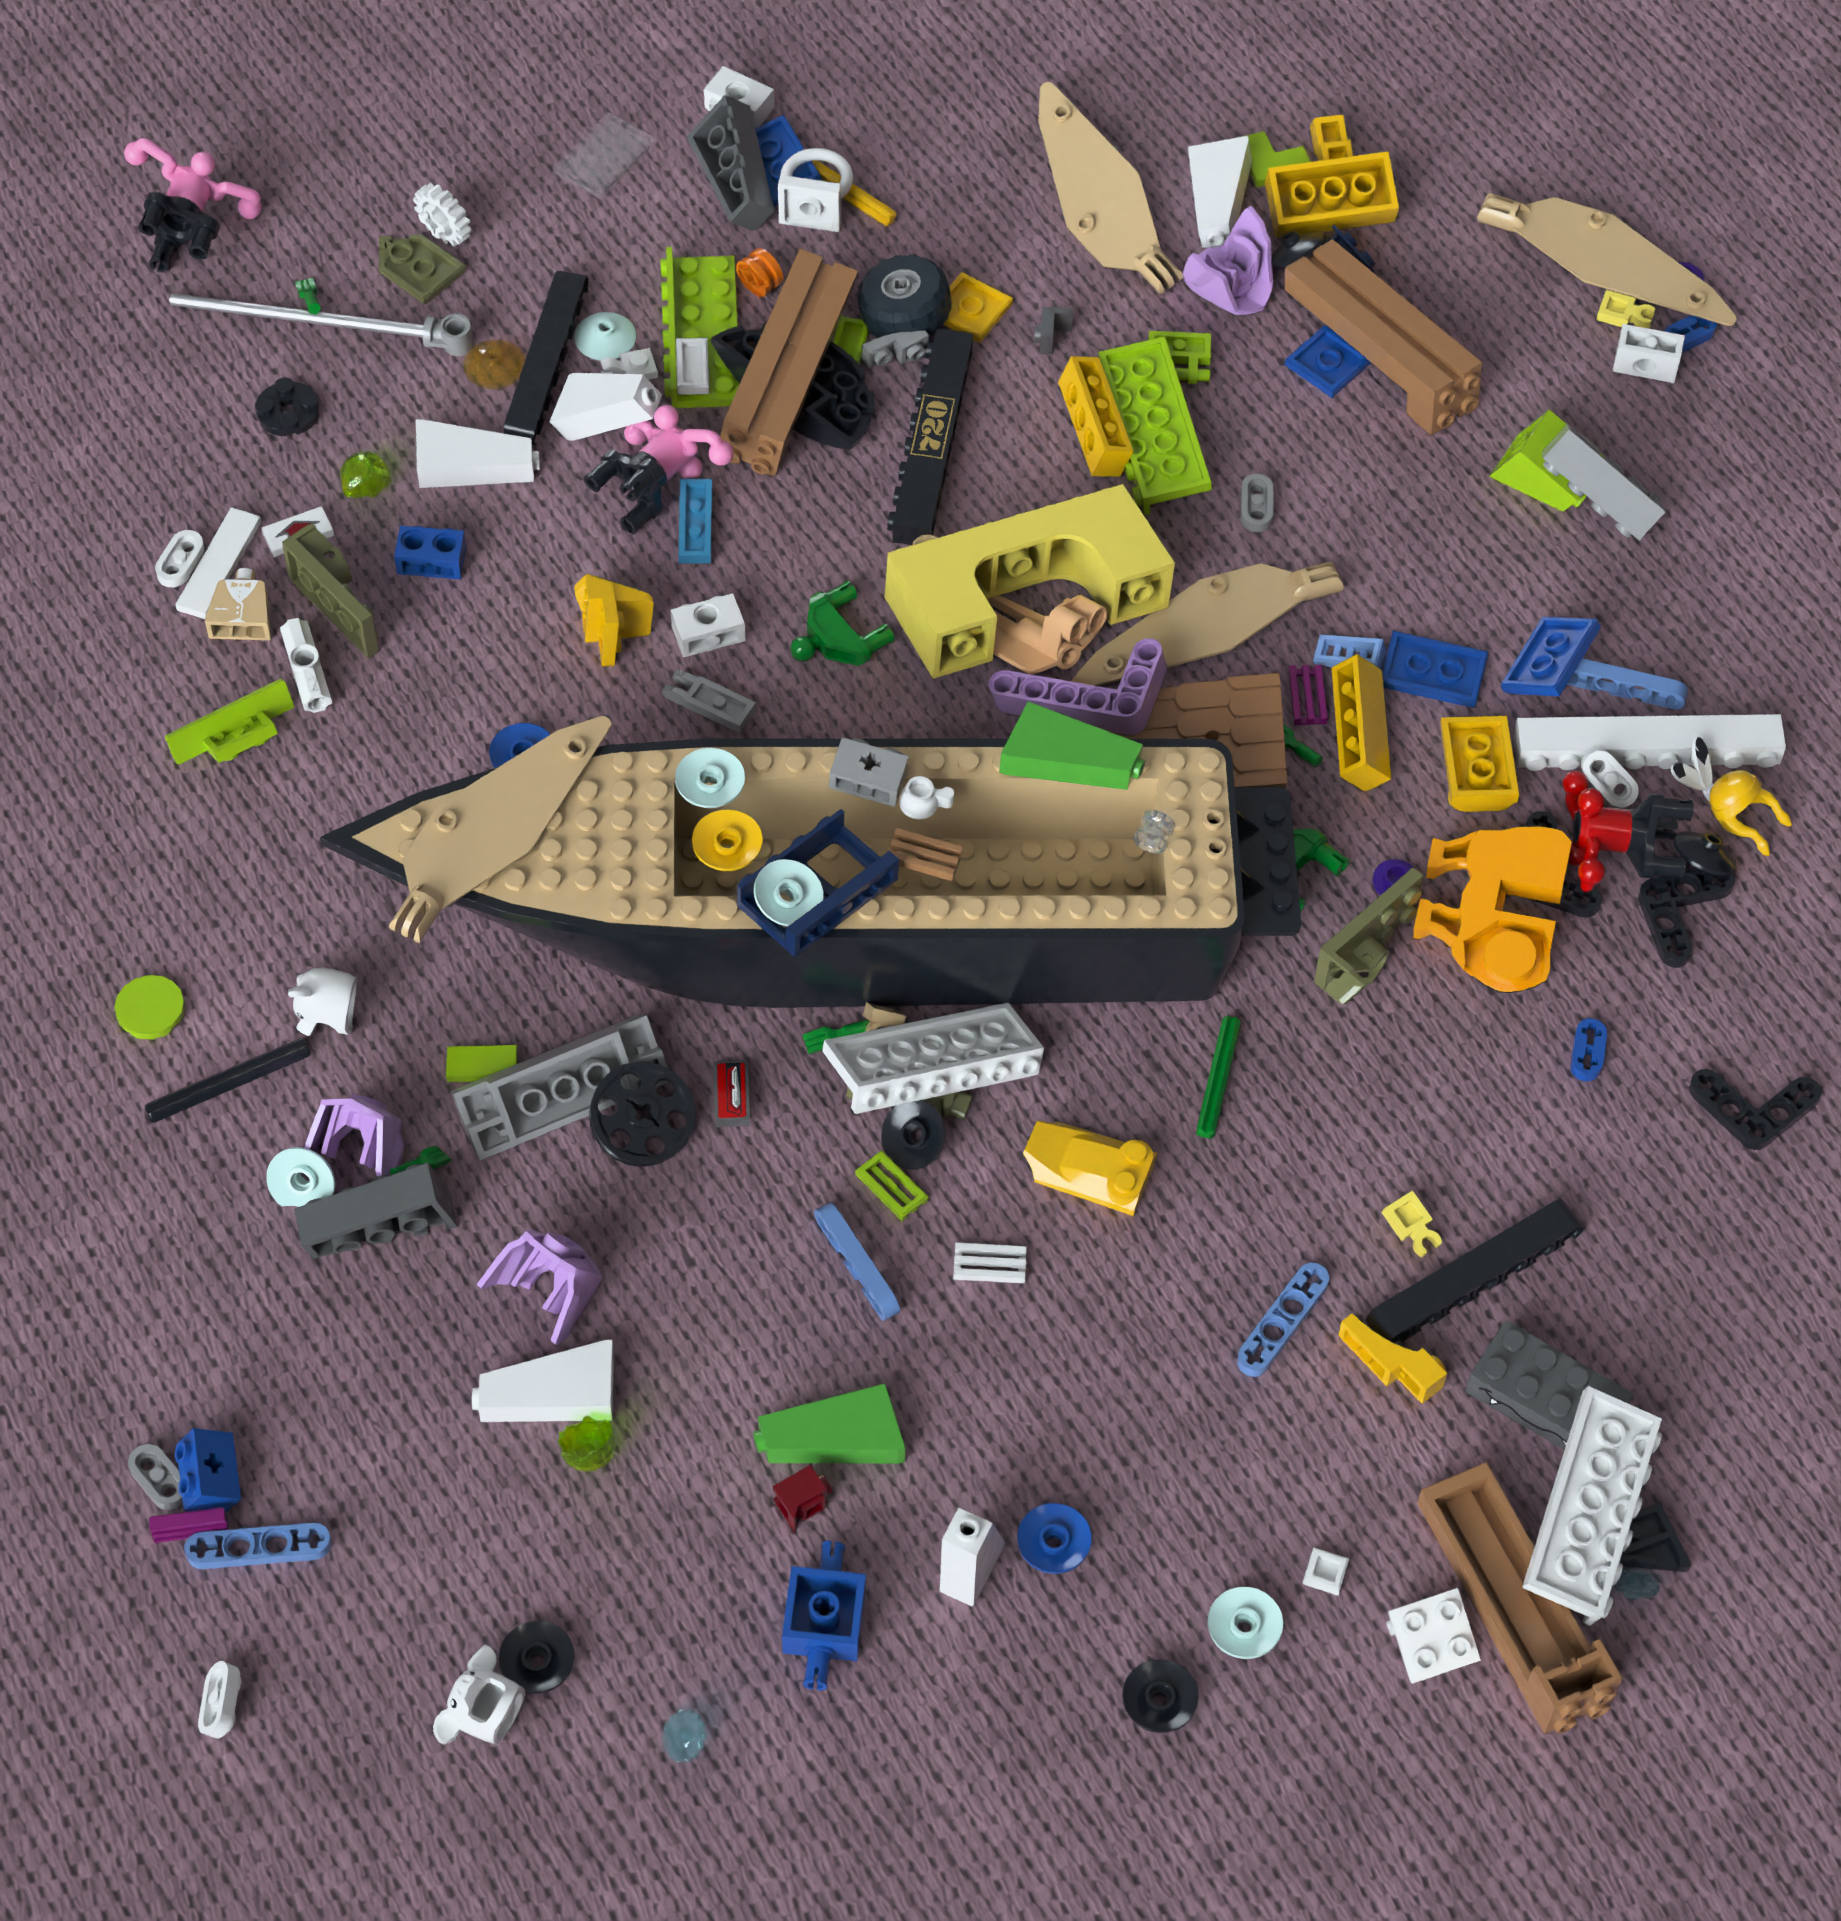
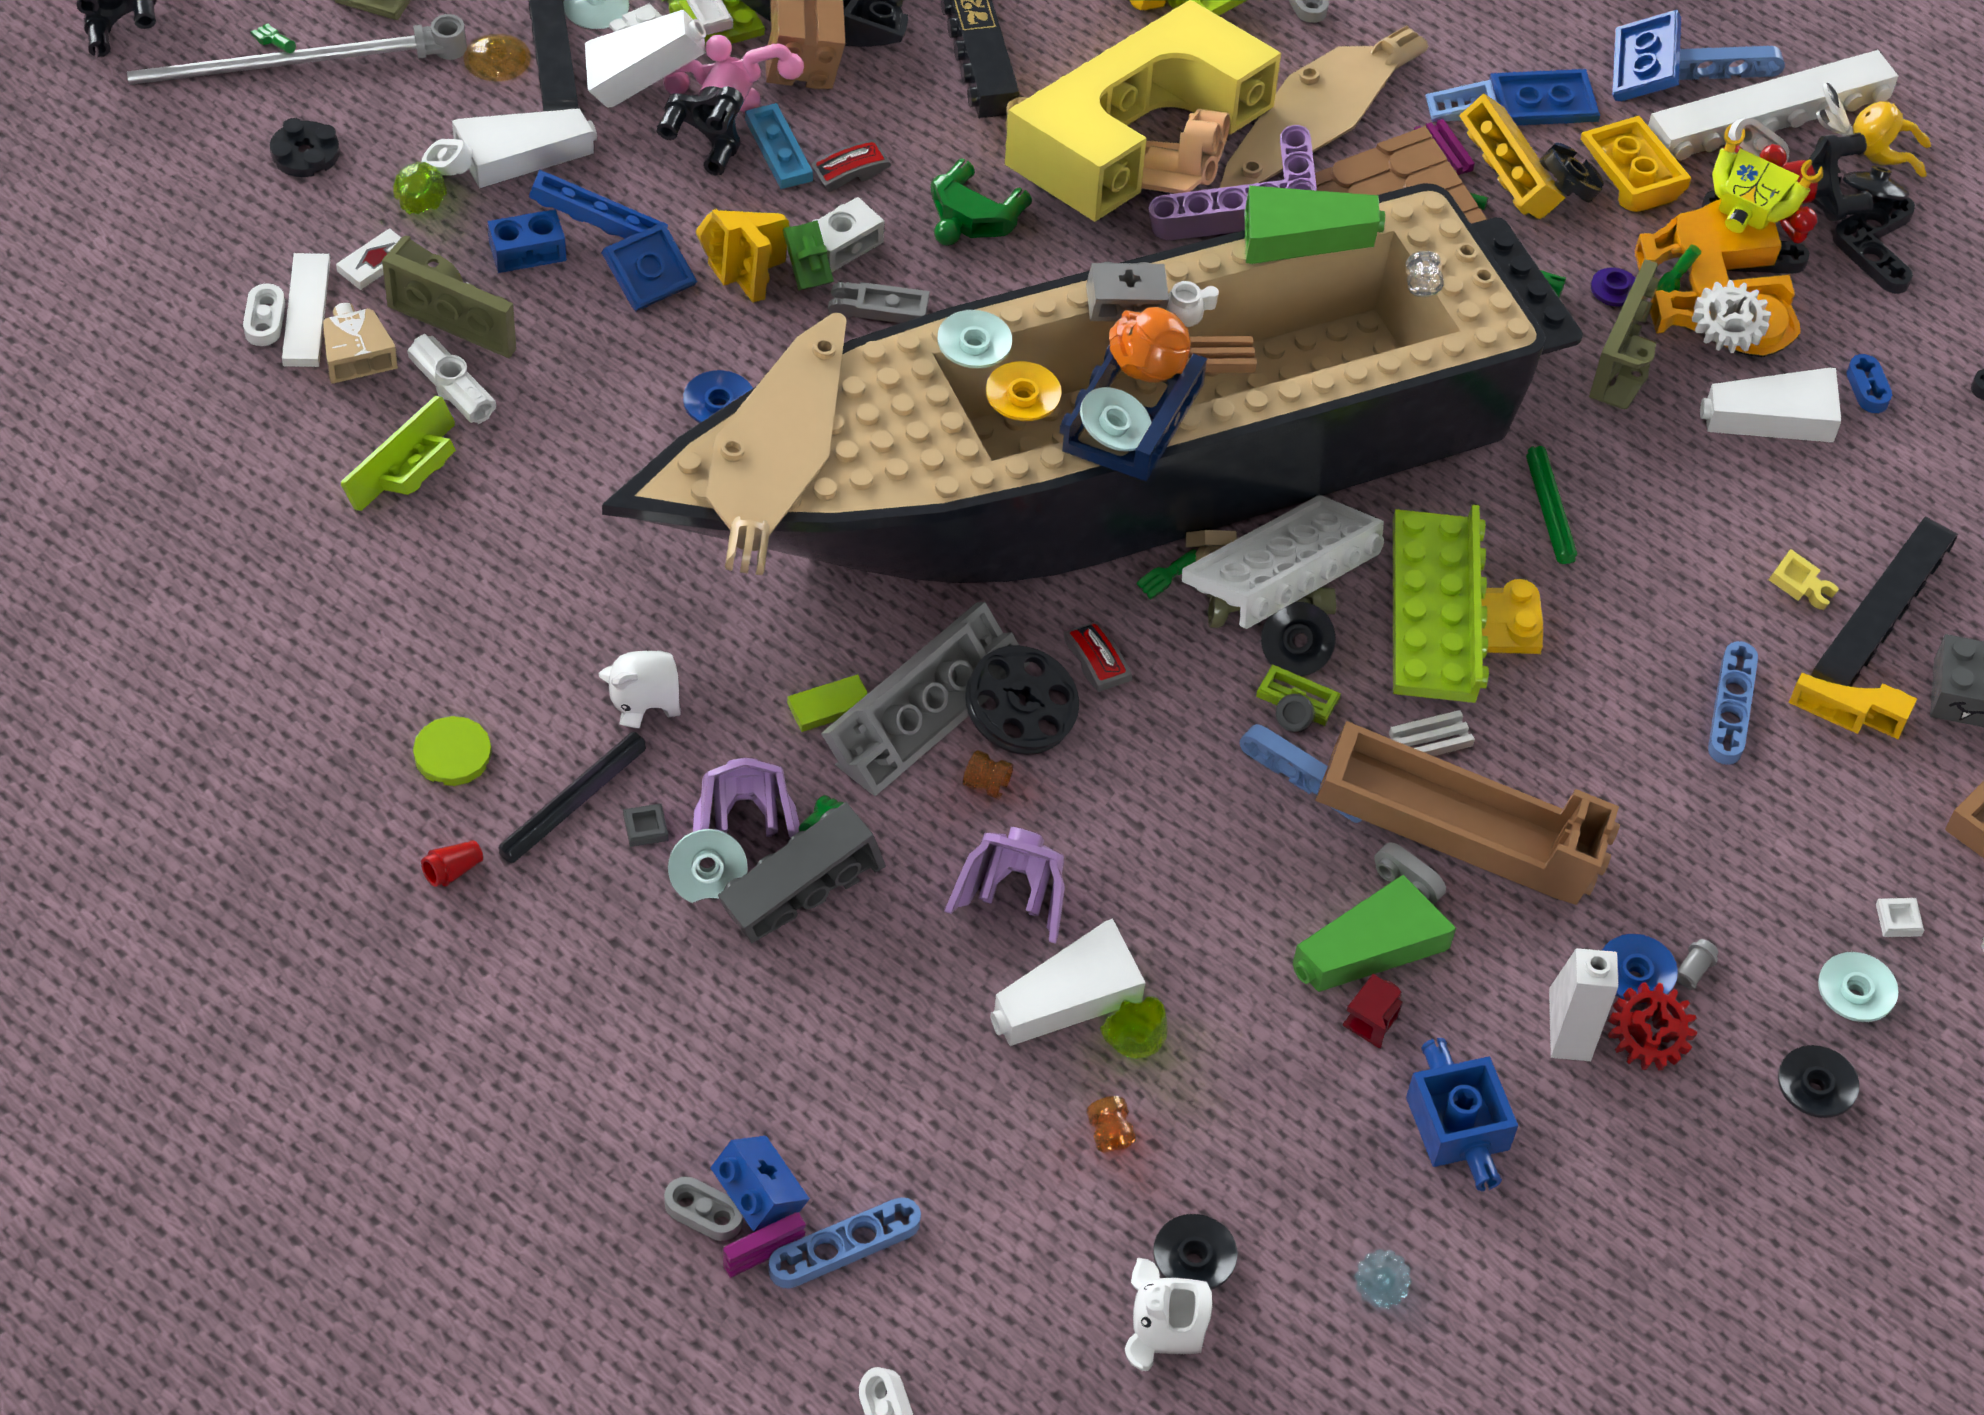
camera: 25 degrees left, 5 degrees down
(100, 1106) = (450, 862): none -> red cone
(275, 1124) = (645, 825): none -> dark grey tile
(398, 453) = (449, 156): none -> white plate
(500, 542) = (588, 206): none -> blue plate
(522, 607) = (649, 266): none -> blue tile
(524, 1520) = (1110, 1122): none -> clear orange wheel
(578, 1171) = (987, 774): none -> clear orange wheel
(661, 638) = (808, 255): none -> bright green hips
(758, 555) = (843, 165): none -> slope
(849, 832) = (1156, 346): none -> orange helmet
(877, 1202) = (1295, 713): none -> dark grey tile
(903, 1396) = (1396, 861): none -> light grey plate
(970, 1346) = (1471, 815): none -> medium nougat brick
(1022, 1586) = (1668, 1028): none -> red gear
(1049, 1142) = (1439, 605): none -> lime bracket
(1112, 1551) = (1700, 957): none -> light grey pin
(1411, 755) = (1571, 174): none -> black plate
(1446, 892) = (1671, 280): none -> green piece
(1467, 959) = (1731, 316): none -> white gear
(1482, 1046) = (1776, 406): none -> white slope
(1555, 828) = (1756, 189): none -> neon yellow torso

